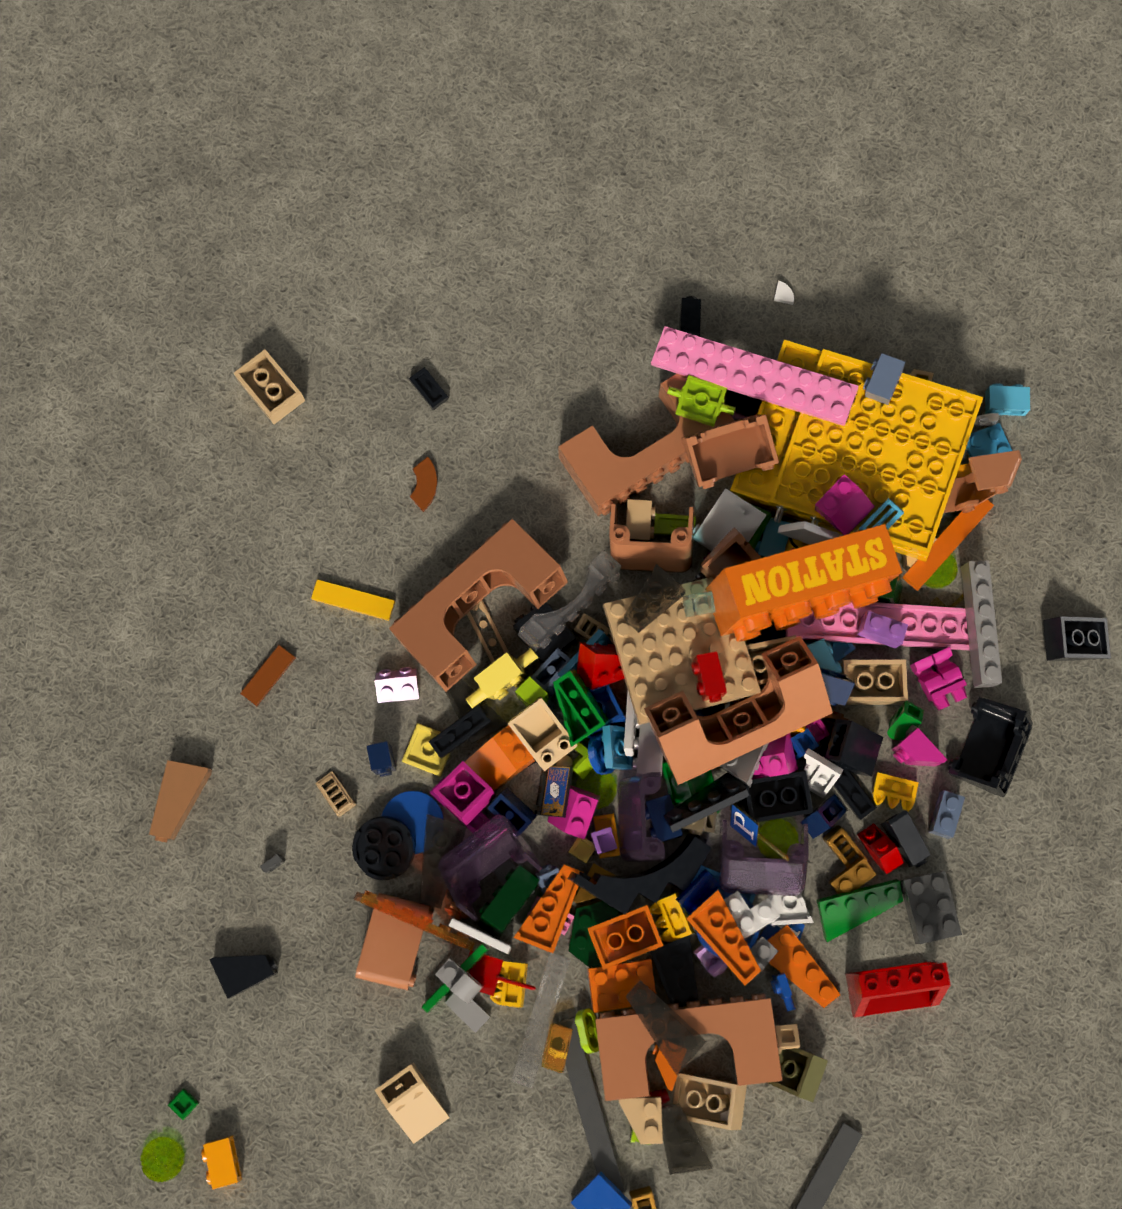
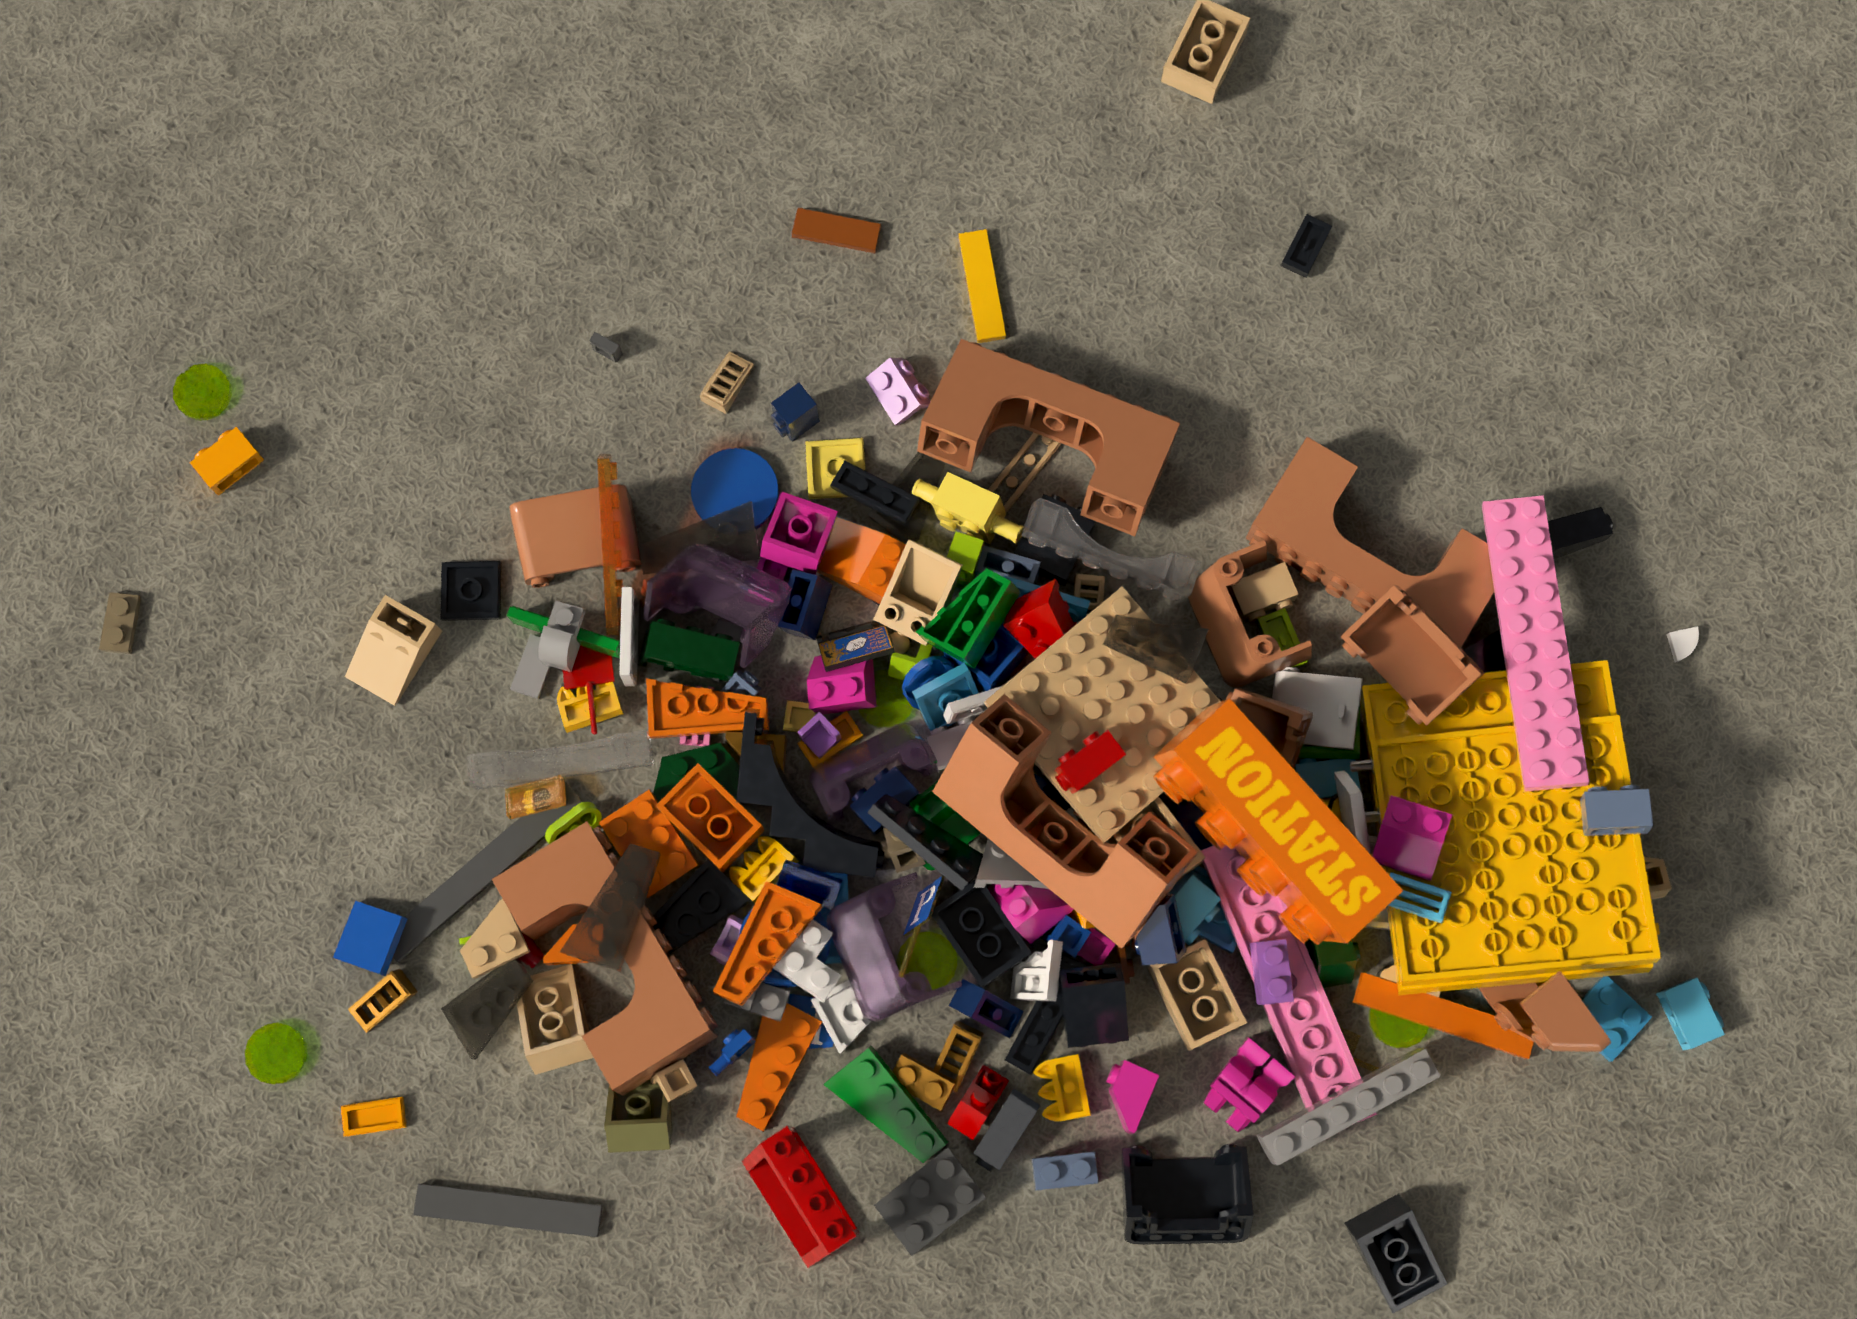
camera: 65 degrees right, 0 degrees up
(177, 796) = (633, 196): medium nougat slope -> none
(183, 1104) = (275, 384): green tile -> none
(243, 972) = (458, 376): black slope -> none
(383, 848) = (686, 470): black tile -> none
(394, 1030) = (471, 590): none -> black tile
(426, 484) = (1177, 303): dark orange tile -> none
(698, 604) = (1180, 705): clear light blue panel -> none
(701, 401) = (1463, 589): lime plate -> none
(903, 720) = (1171, 1058): green leg -> none
(987, 419) = (1648, 999): white tile -> none

